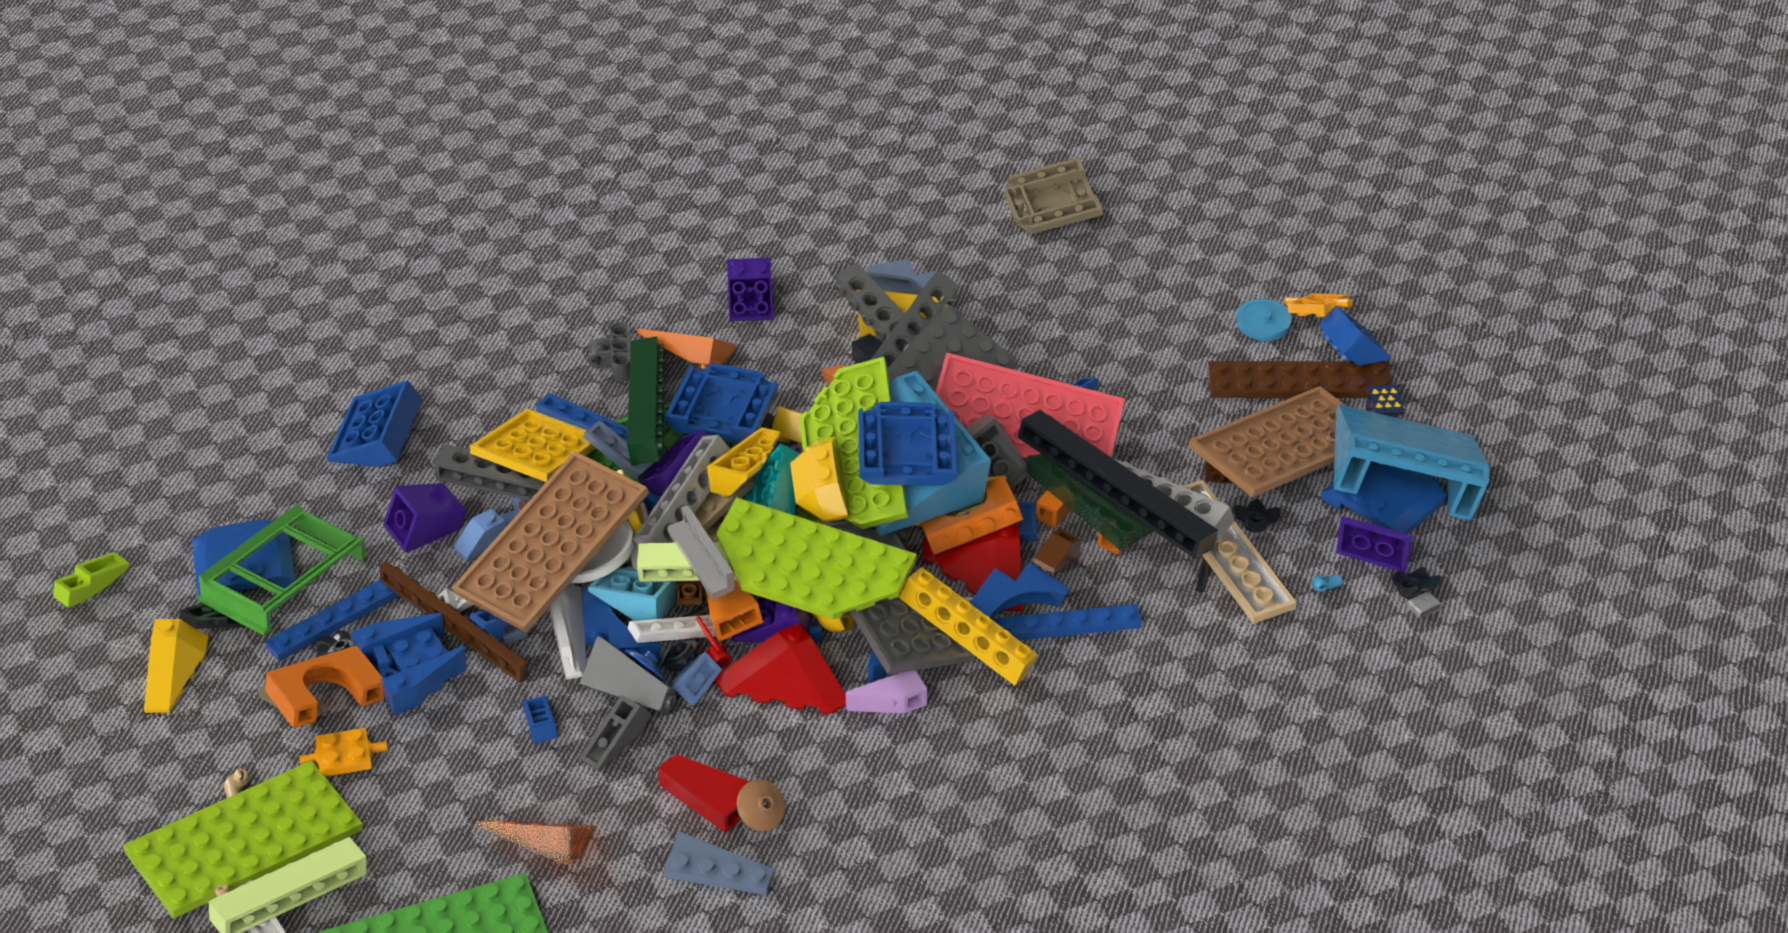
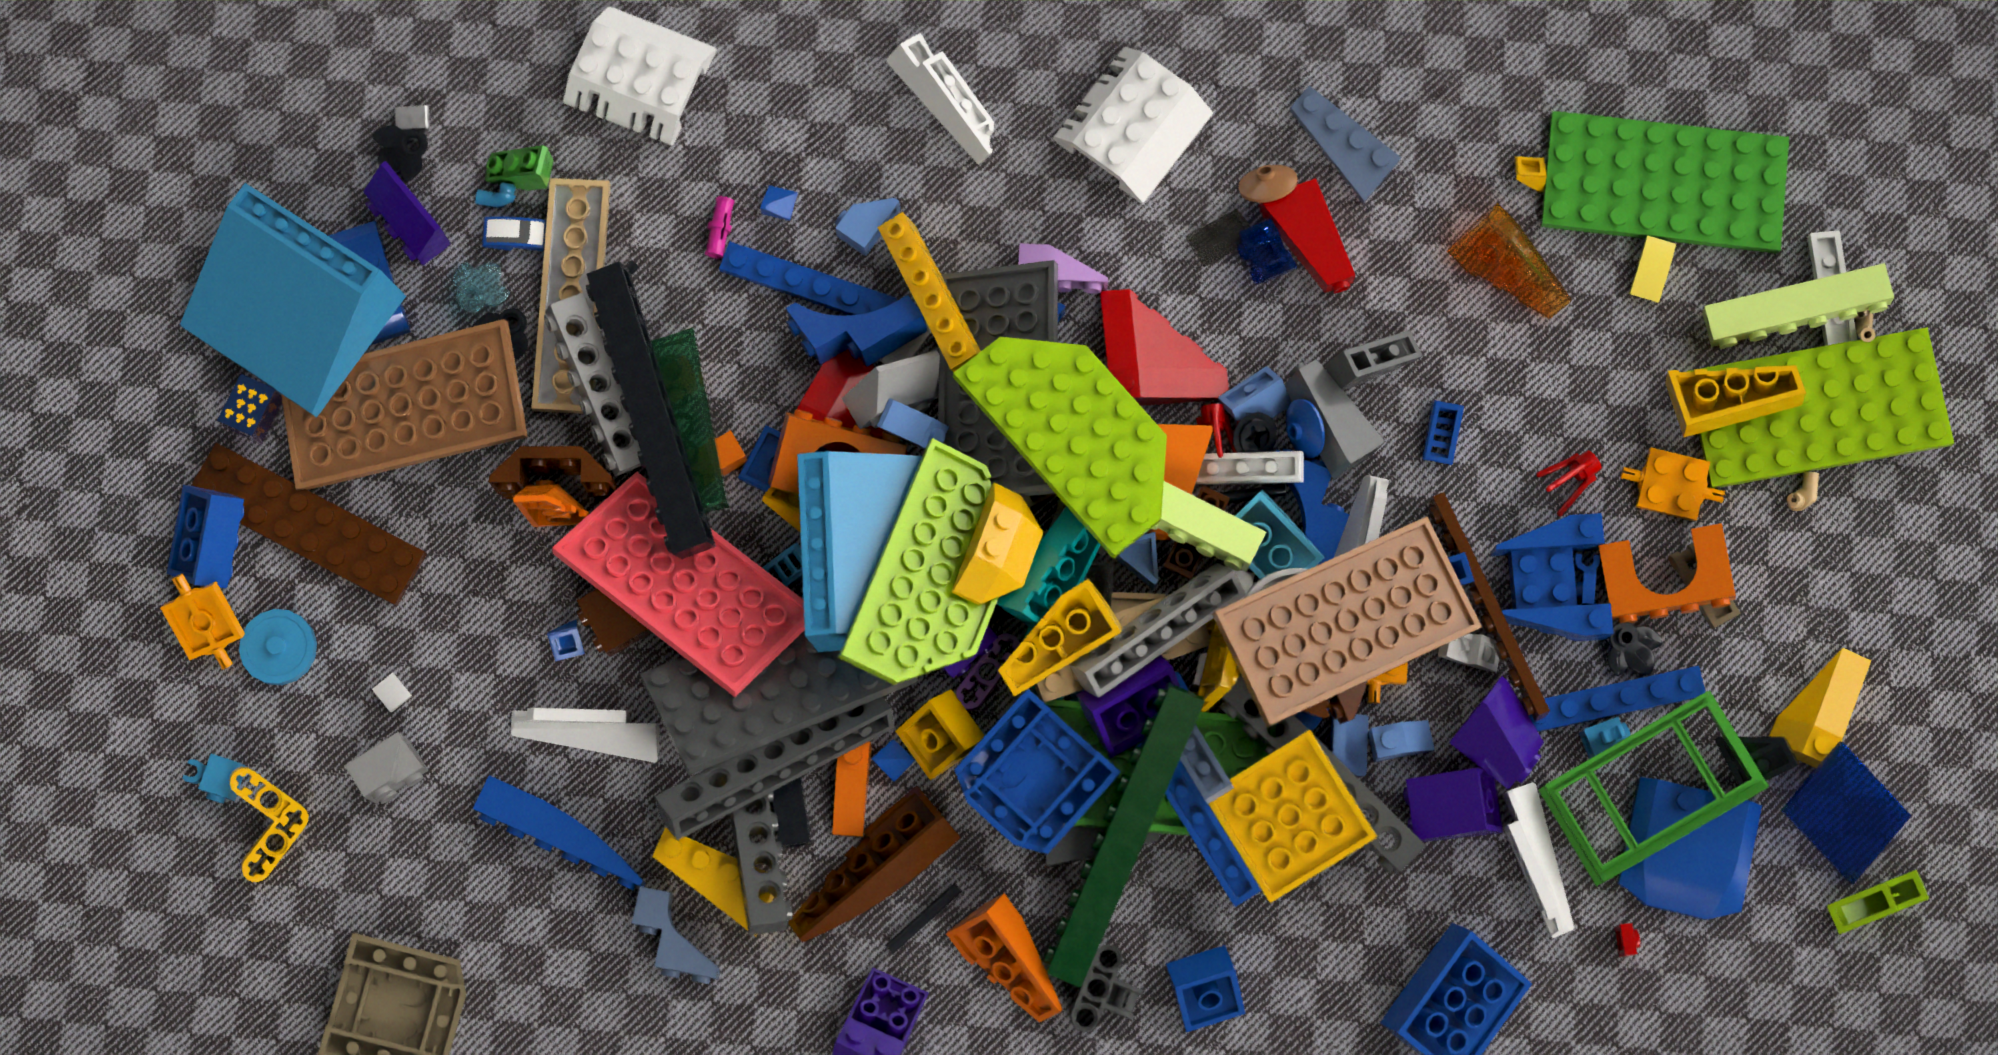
camera: 150 degrees left, 35 degrees up
(133, 607) = (1846, 812): none -> clear blue piece
(268, 495) = (1627, 940): none -> red plate
(319, 797) = (1730, 396): none -> yellow wedge
(330, 587) = (1603, 736): none -> dark azure brick
(354, 516) = (1536, 857): none -> white wedge
(410, 547) = (1500, 736): none -> dark purple slope
(419, 732) = (1582, 467): none -> red plant
(420, 879) = (1652, 269): none -> light yellow slope
(551, 376) = (1205, 988): none -> blue slope
(553, 907) = (1531, 172): none -> yellow slope
(702, 554) = (1192, 498): light grey fence -> none
(730, 758) = (1265, 252): none -> clear blue cylinder
(756, 347) = (923, 918): none -> black bar
(782, 766) = (1217, 237): none -> clear smoke slope
(801, 355) = (889, 857): none -> reddish brown wedge
(894, 803) = (1136, 122): none -> white slope
(907, 444) = (886, 510): blue wedge -> none
(928, 540) = (911, 424): none -> medium blue slope
(959, 556) = (905, 381): none -> light grey slope
(1000, 449) = (761, 544): dark grey slope -> none
(1019, 300) = (551, 828): none -> blue slope
(1049, 351) = (589, 730): none -> white wedge
(1049, 768) = (944, 94): none -> white wedge
(1051, 666) = (861, 221): none -> medium blue slope
(1058, 552) = (770, 356): reddish brown slope -> none
(1124, 659) = (779, 203): none -> blue slope
(1146, 281) = (387, 769): none -> light grey slope
(1146, 422) = (549, 505): none -> orange wedge
(1155, 627) = (719, 227): none -> dark pink pin
(1160, 452) = (572, 460): none -> reddish brown slope
(1175, 328) = (392, 692): none -> white piece
(1216, 244) = (276, 813): none -> yellow beam
(1244, 251) = (215, 777): none -> dark azure brick
(1288, 693) = (637, 73): none -> white slope
(1294, 534) = (480, 282): none -> clear light blue plate
(1298, 565) = (514, 232): none -> slope
(1319, 597) = (523, 167): none -> bright green slope

